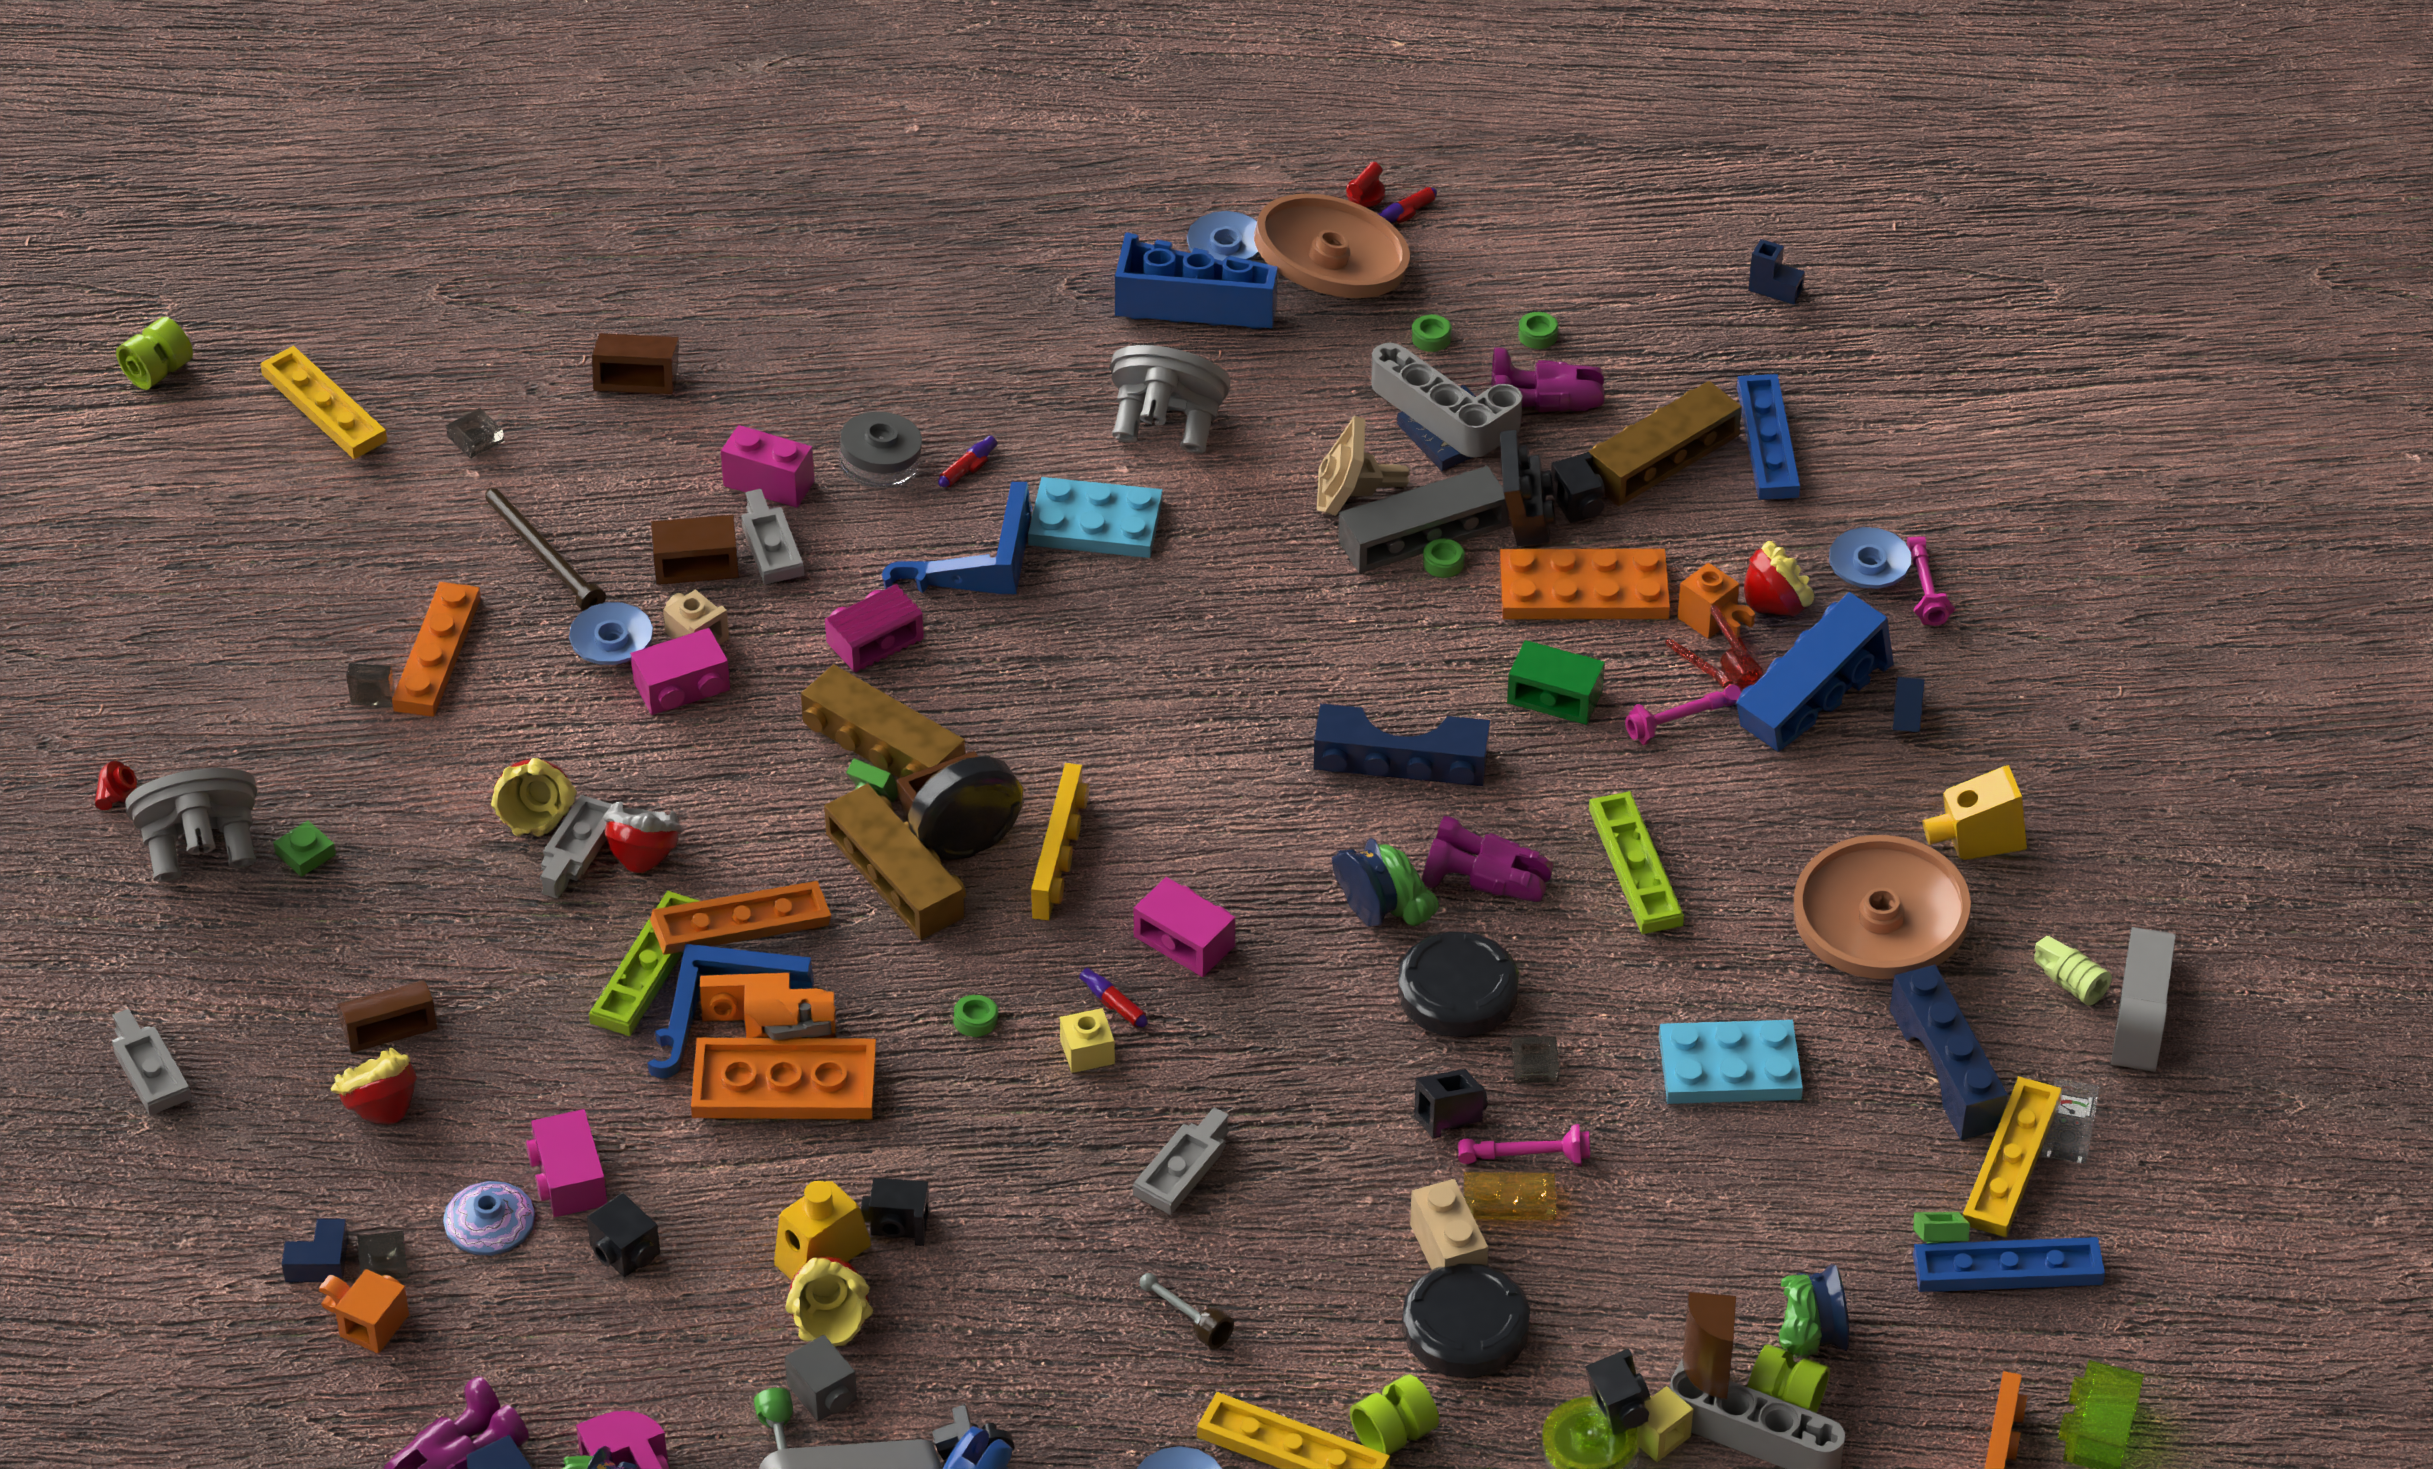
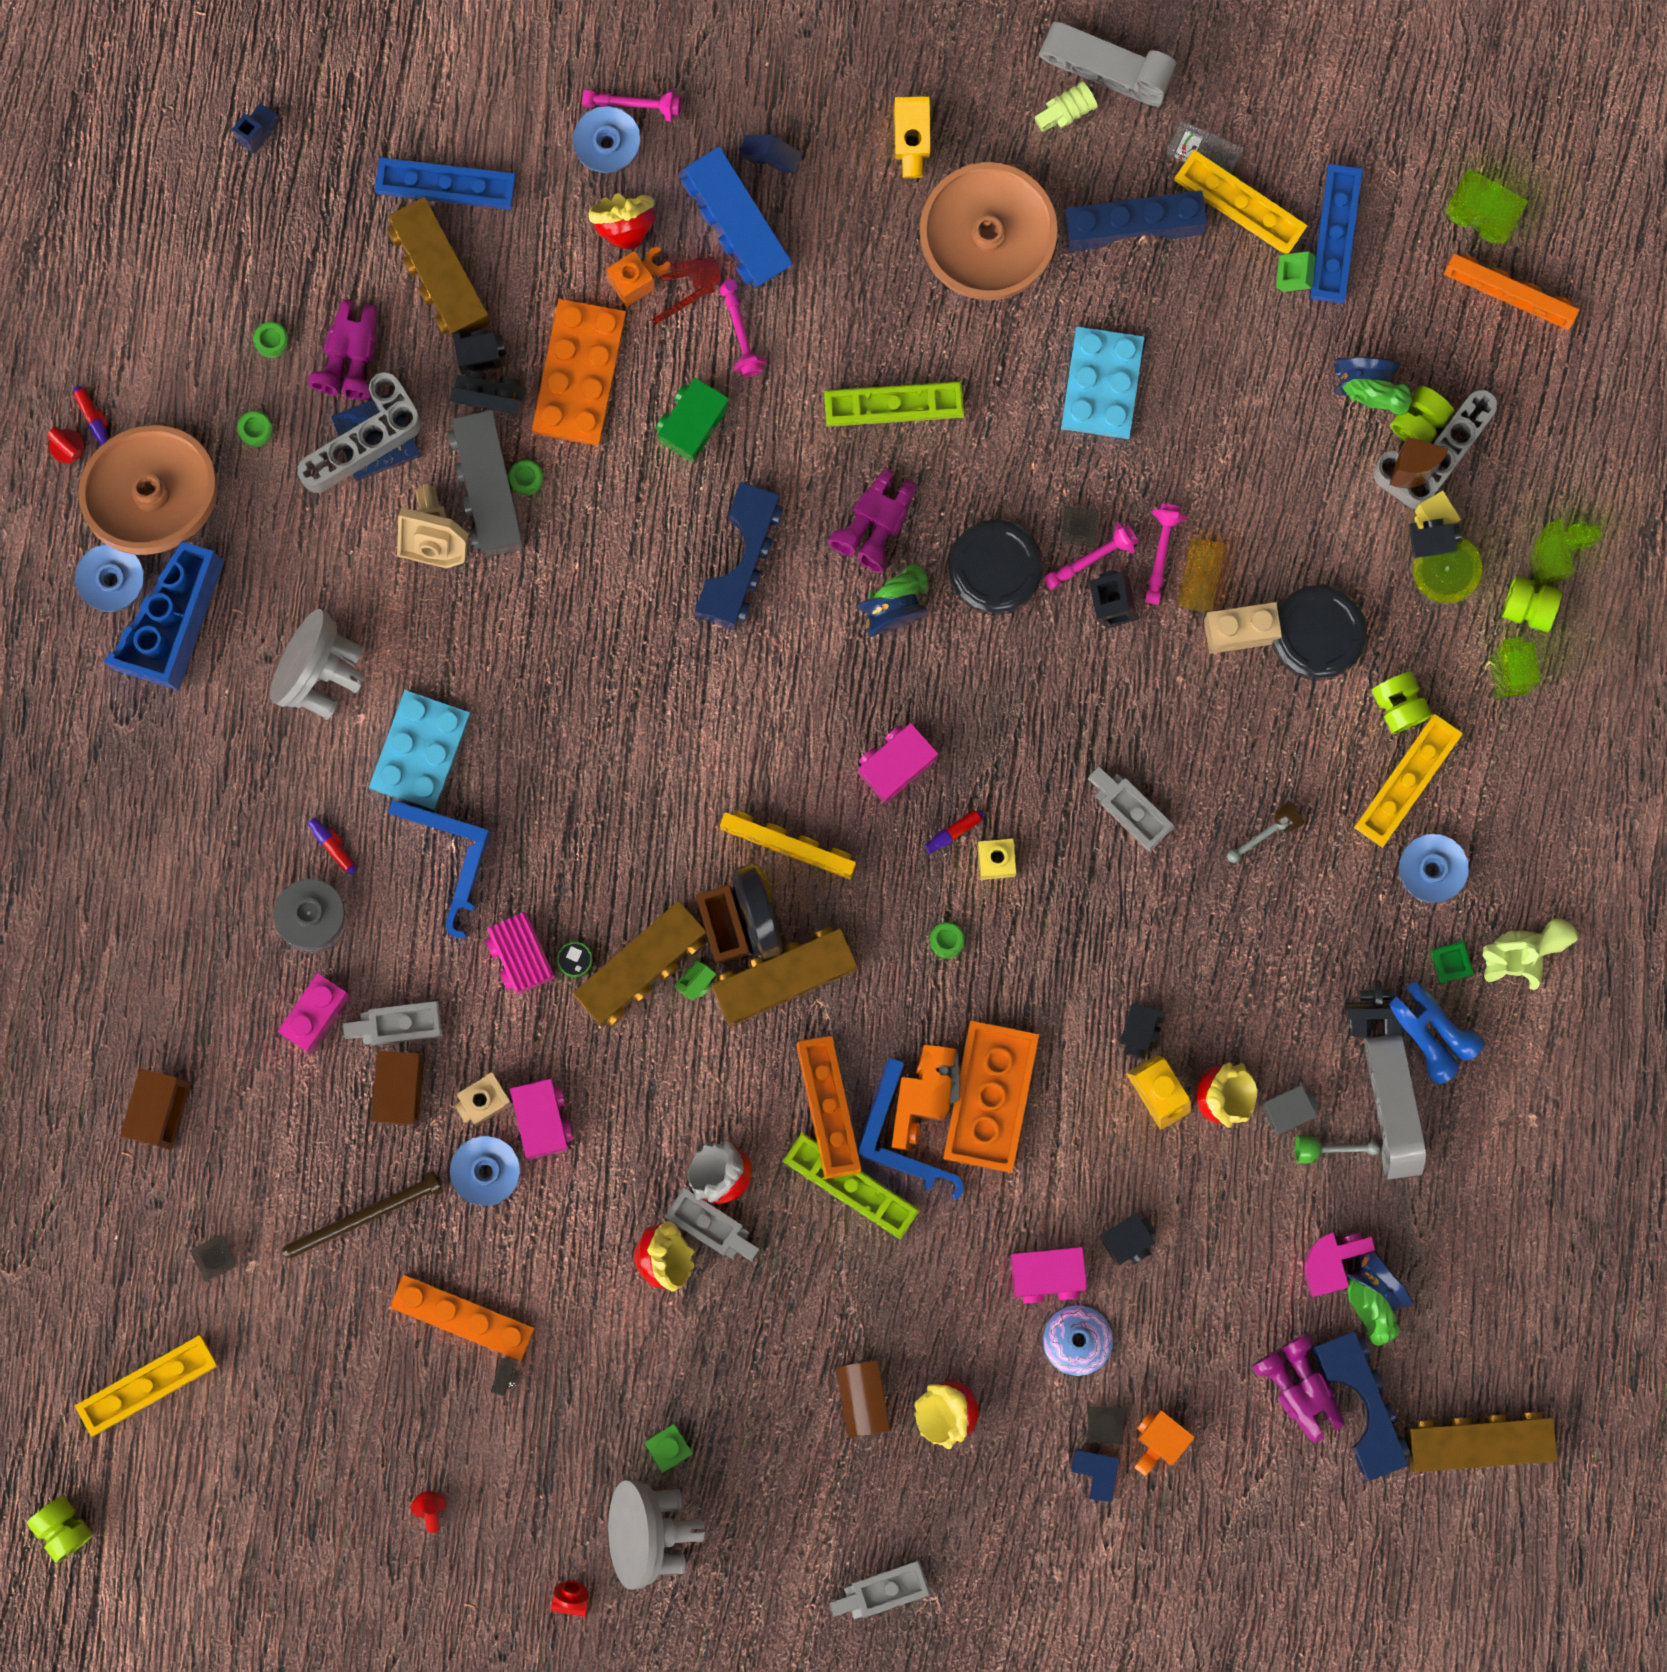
camera: 80 degrees left, 35 degrees up
(207, 647) = (429, 1505): none -> red plate
(881, 676) = (574, 959): none -> tile
(1533, 1105) = (1123, 539): none -> dark pink piece

